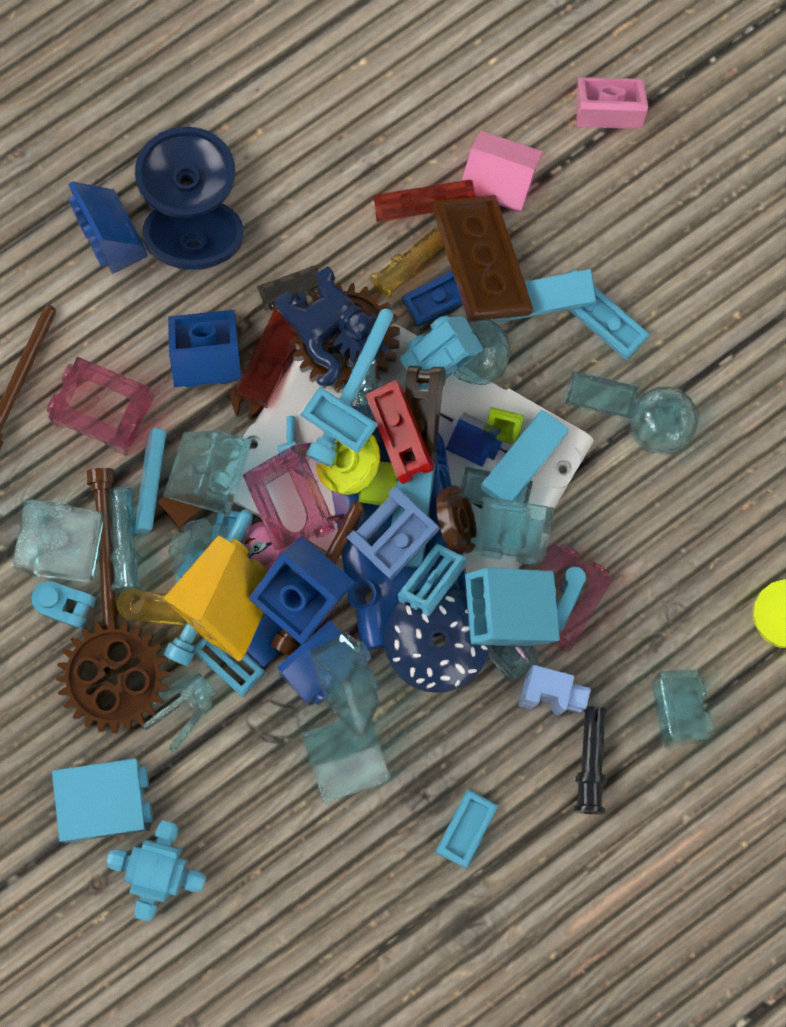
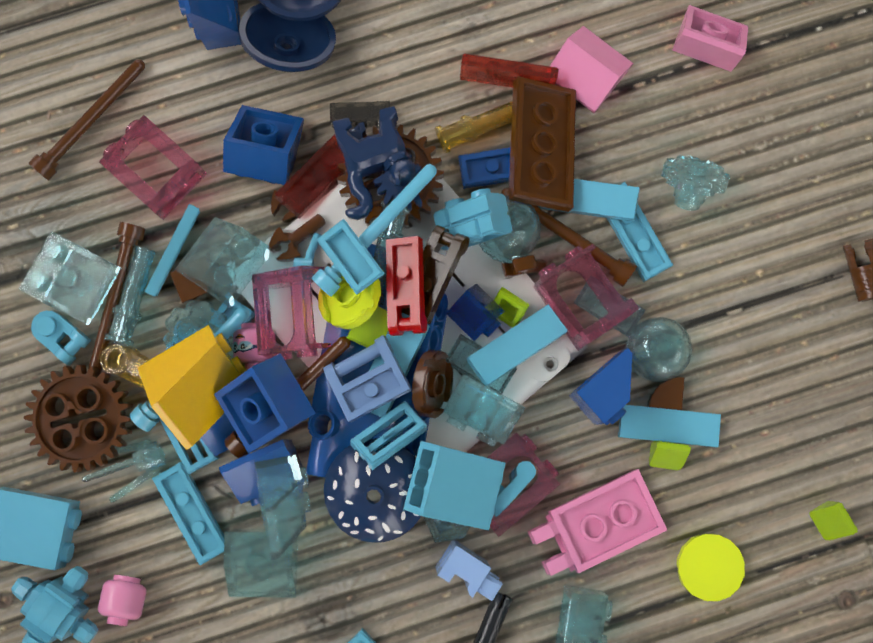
camera: 20 degrees right, 5 degrees up
(219, 839) = (122, 600): none -> bright pink head
(257, 734) = (190, 512): none -> medium azure tile
(271, 427) = (295, 238): none -> reddish brown bar
(504, 379) = (522, 265): none -> reddish brown bar
(560, 360) = (585, 265): none -> clear pink panel
(598, 355) = (619, 269): none -> reddish brown piece
(626, 475) = (606, 390): none -> blue slope
(641, 245) = (694, 180): none -> clear light blue plant
(665, 607) = (600, 524): none -> bright pink tile
(689, 462) = (668, 395): none -> reddish brown tile
(700, 491) = (670, 426): none -> medium azure tile
(709, 518) = (668, 455): none -> lime slope

